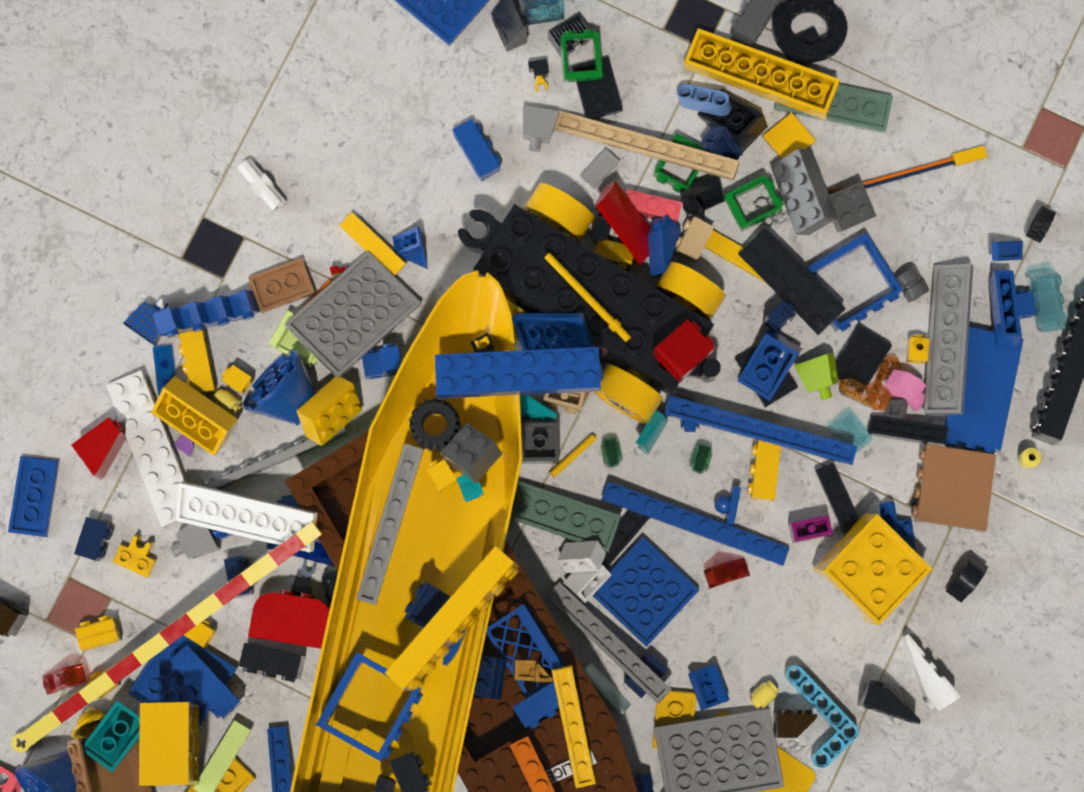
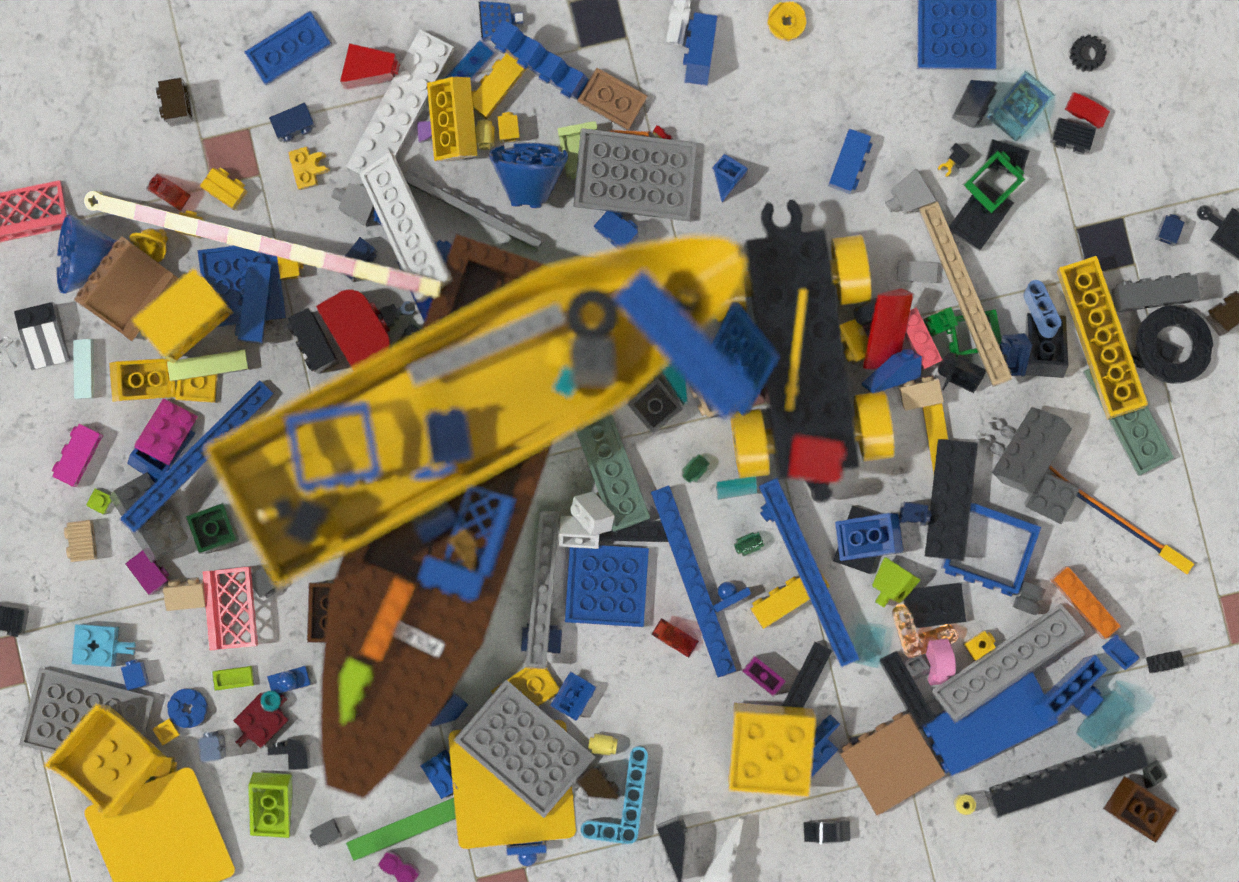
camera: 55 degrees right, 5 degrees up
(114, 737) = (154, 268): teal slope -> none
(300, 189) = (700, 48): none -> blue wedge
(329, 410) = (543, 220): yellow brick -> none
(341, 117) = (786, 10): none -> yellow plate
(373, 243) = (706, 140): yellow tile -> none
(452, 619) = (450, 455): yellow brick -> none
(572, 456) = (667, 441): yellow bar -> none
(573, 726) = (450, 615): yellow tile -> none
(607, 689) = (506, 617): light aqua slope -> none
(652, 179) = (940, 322): none -> green slope
(769, 186) = (978, 395): green window -> none
(788, 136) = (1069, 401): yellow tile -> none
(948, 247) = (1085, 602): none -> orange brick

